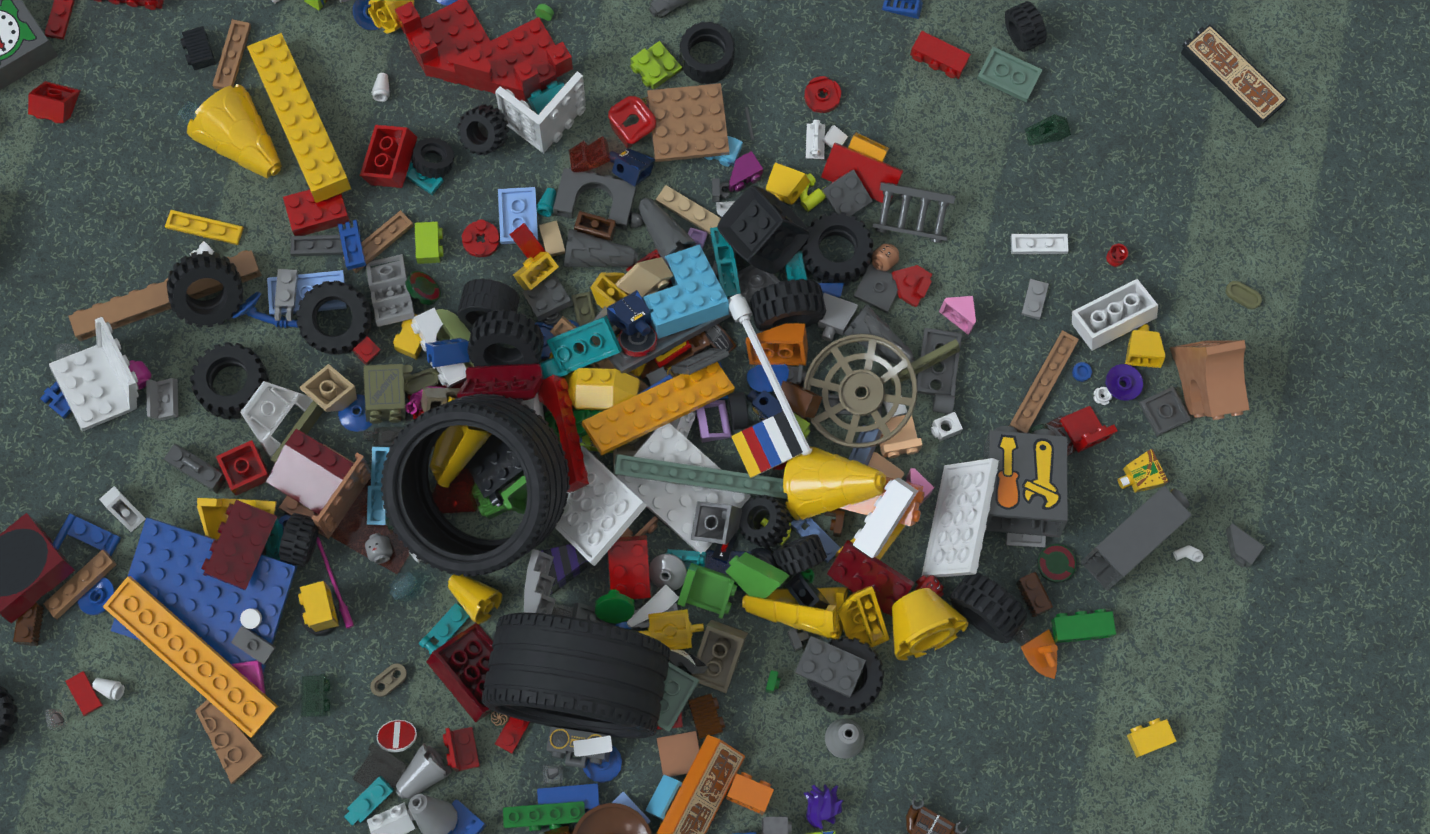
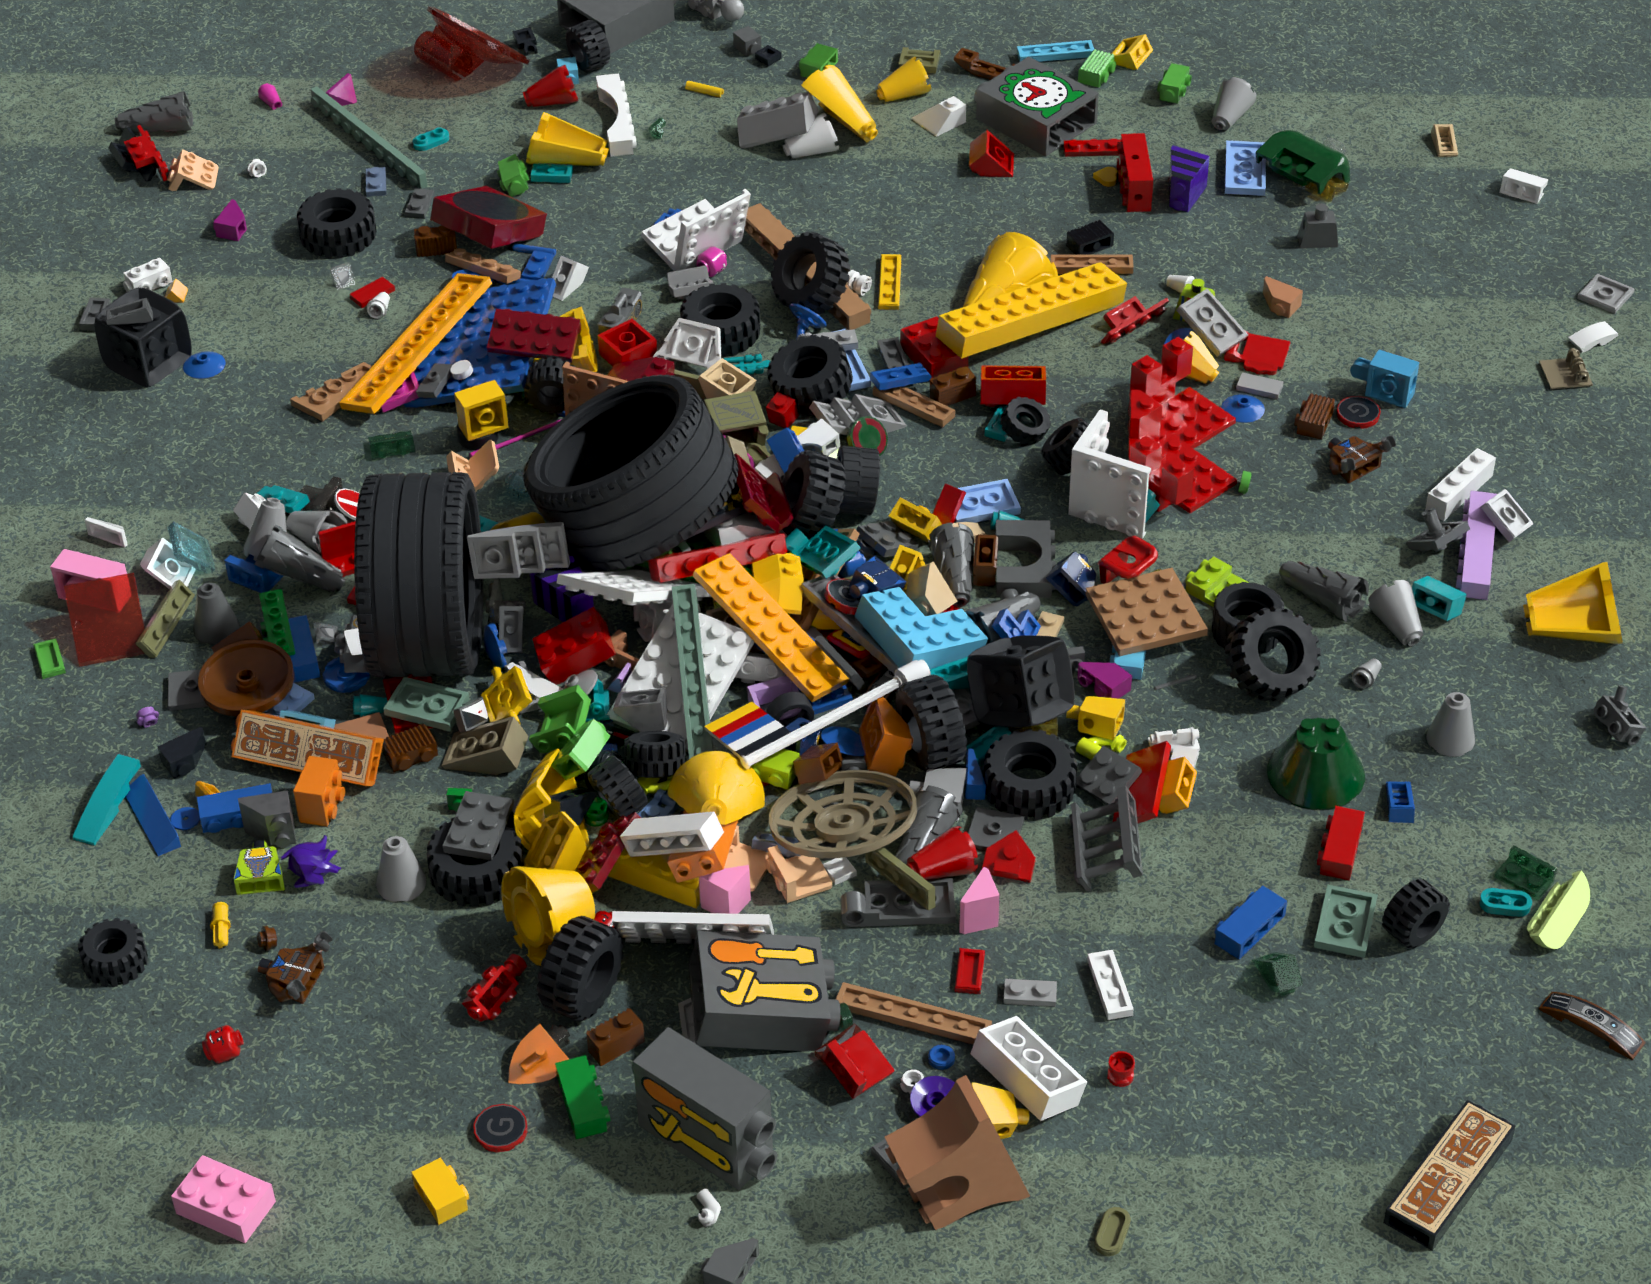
camera: 85 degrees right, 30 degrees down
(107, 12) = (1106, 176): none -> yellow tile
(288, 353) = (752, 367): none -> teal piece
(315, 43) = (1128, 315): none -> red bracket
(371, 205) = (953, 386): none -> reddish brown brick
(375, 624) = (479, 467): none -> light nougat bracket
(381, 88) = (1097, 374): white cone -> none
(428, 242) = (924, 437): lime brick -> none
(471, 796) = (293, 559): none -> dark grey cone
(480, 228) = (932, 475): red plate -> none
(587, 157) = (1074, 540): clear red slope -> none
(614, 607) = (523, 641): green tile -> none
(647, 749) = (367, 705): none -> teal cone
(660, 537) = (620, 679): none -> lavender slope
(690, 223) = (1008, 626): none -> blue plate
(763, 61) = (1296, 640): none -> black tyre
(820, 104) = (1239, 750): red plate -> none
(863, 52) = (1317, 766): none -> dark green cone
(885, 257) = (1035, 824): nougat head -> none
(911, 328) = (945, 856): none -> red cone
(950, 420) = (823, 919): white brick -> none
(974, 680) = (485, 1001): none -> red brick
(1001, 136) = (1250, 922): none -> blue brick
(1007, 335) = (969, 971): none -> red tile
(1096, 689) = (500, 1128): none -> black tile
(1143, 473) = (811, 1137): torso -> none

